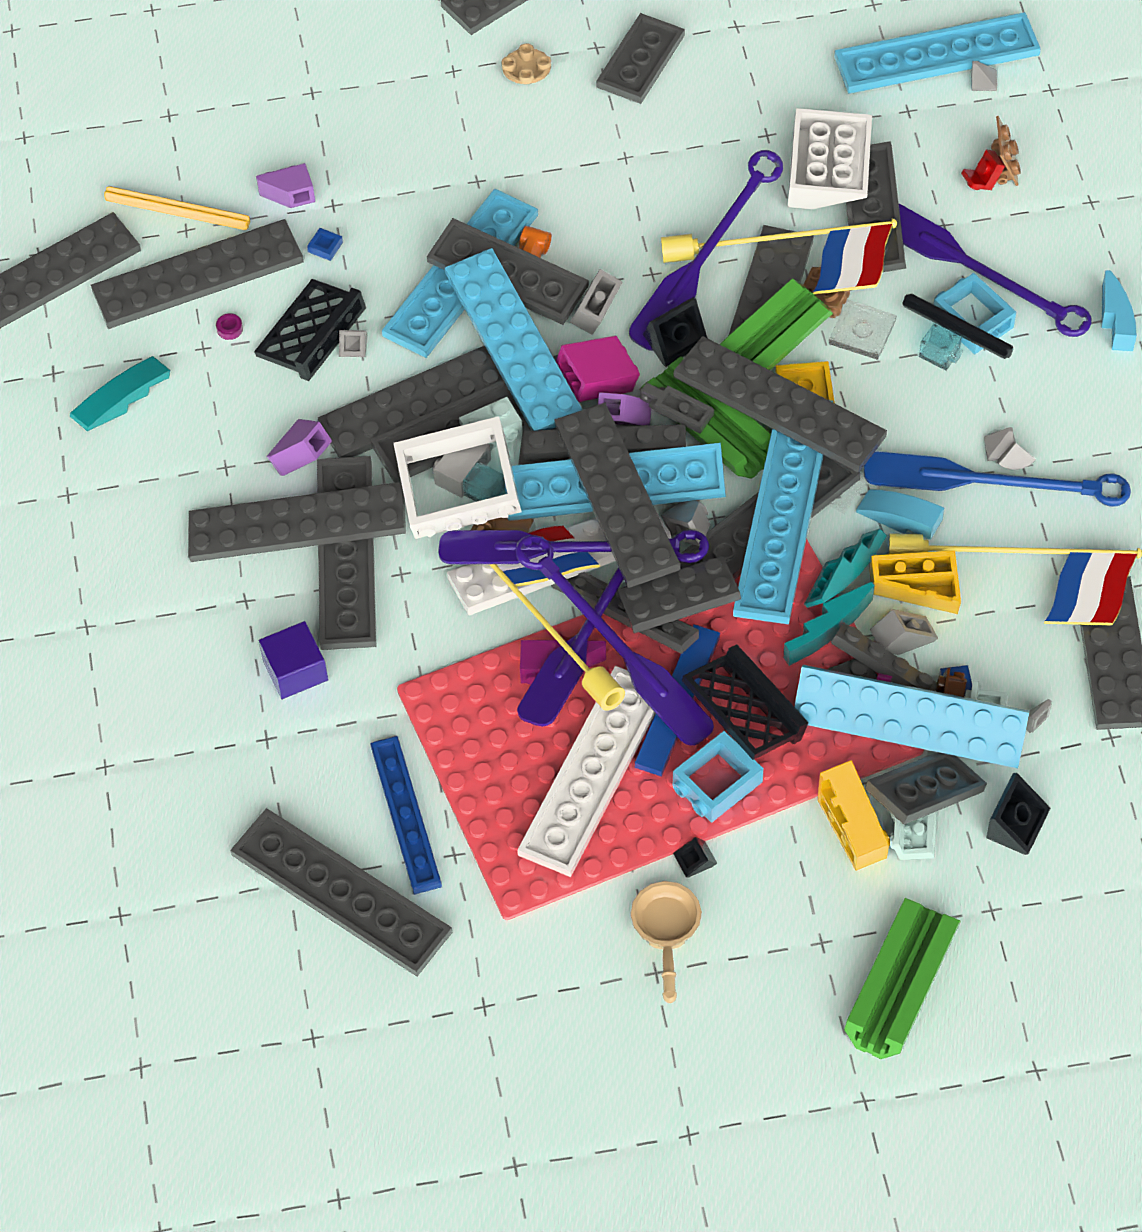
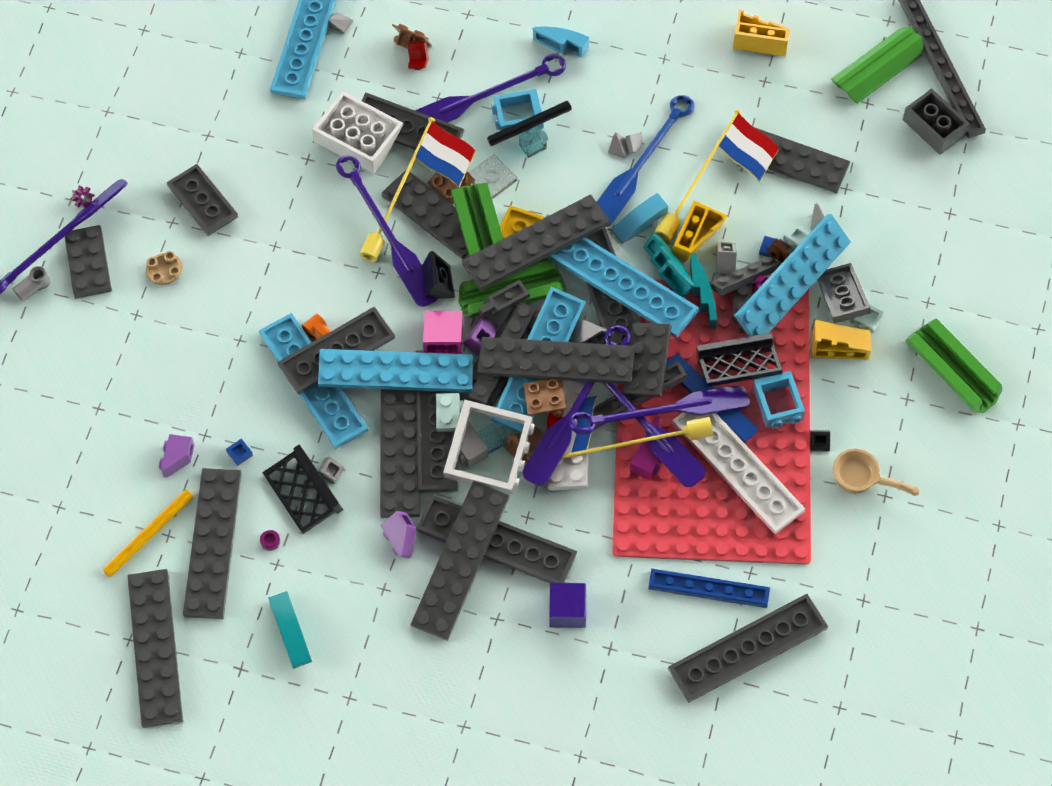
camera: 65 degrees left, 5 degrees up
(561, 507) = (545, 397): none -> medium nougat hinge
(596, 302) = (390, 309): light grey brick -> none
(1017, 816) = (877, 260): black slope -> none

